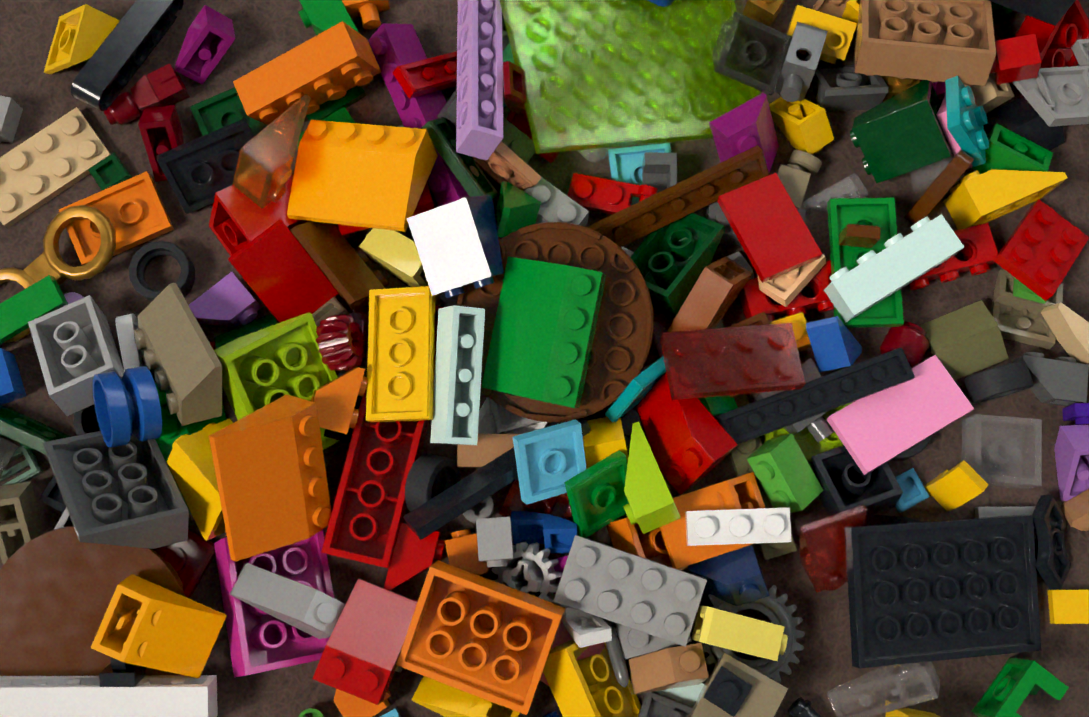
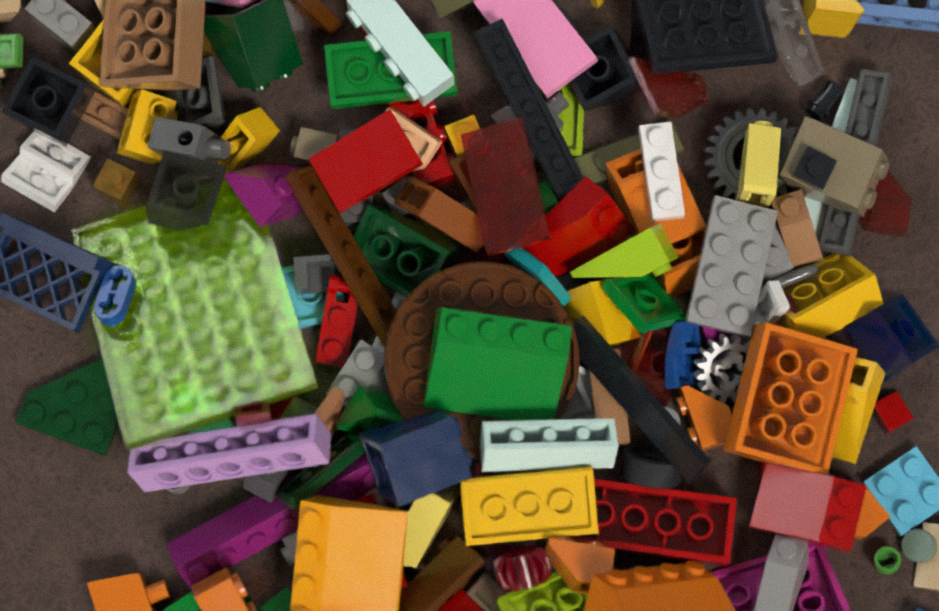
camera: 90 degrees left, 0 degrees up
(412, 556) = (722, 480): red slope -> none
(428, 75) = (224, 511): red tile -> none
(494, 541) = (699, 397): light grey brick -> none
(548, 460) = (621, 349): medium azure plate -> none
(733, 576) = (706, 174): dark blue slope -> none
(785, 473) = (603, 134): bright green brick -> none
(806, 161) = (285, 134): dark tan tile -> none
(832, 344) = (476, 95): blue slope -> none
(847, 188) = (315, 97): clear slope -> none
(859, 236) = (370, 74): reddish brown tile -> none
(910, 338) = (462, 28): dark red head -> none
(912, 490) = (601, 19): dark azure tile -> none

